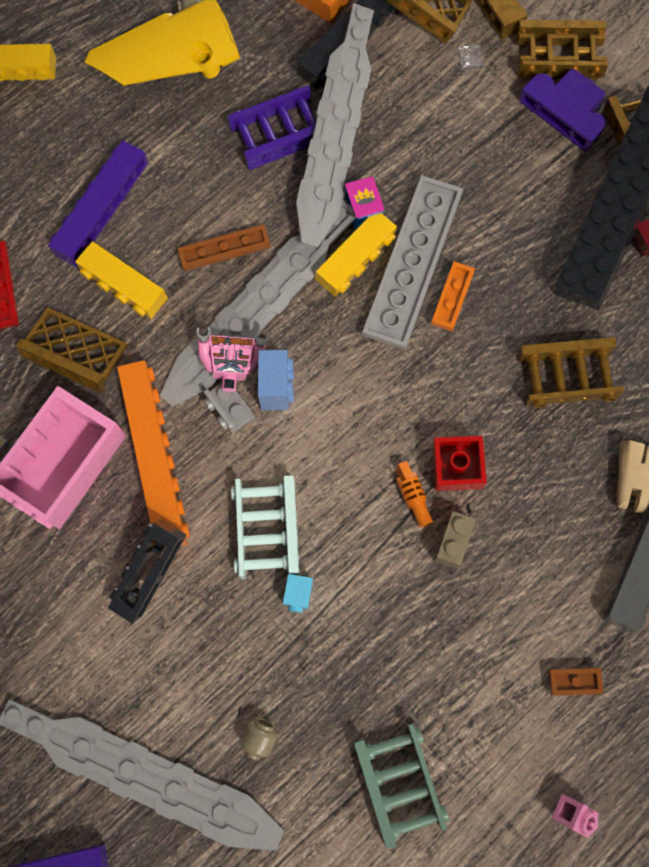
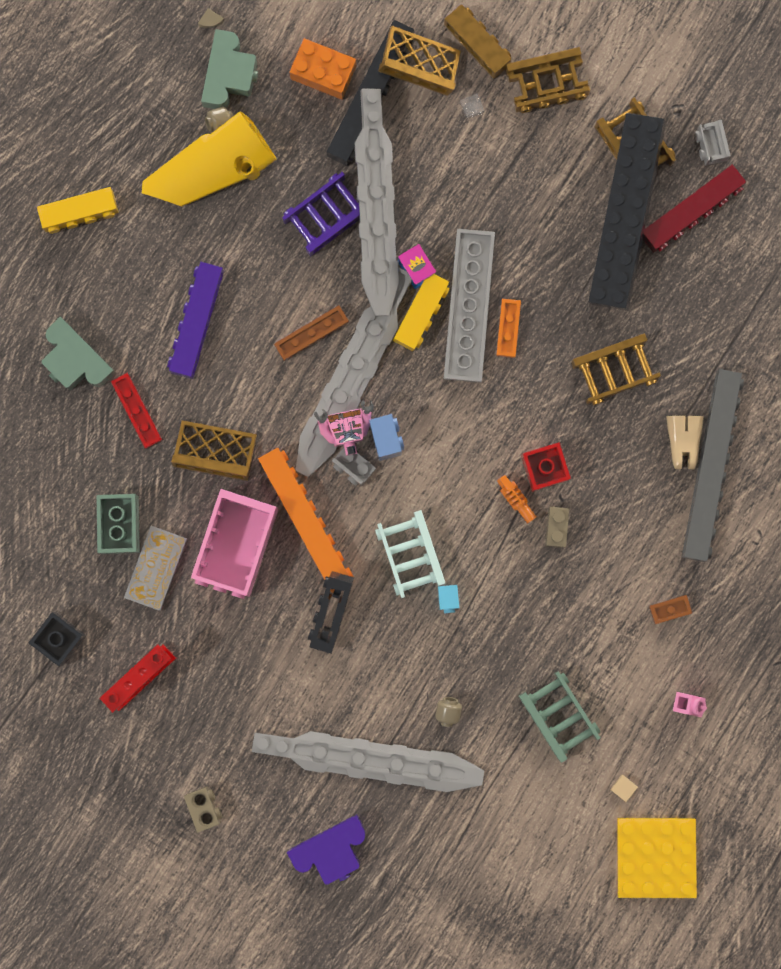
camera: 15 degrees left, 10 degrees up
(121, 280) = (236, 383): yellow brick -> none
(567, 106) = (564, 133): dark purple brick -> none

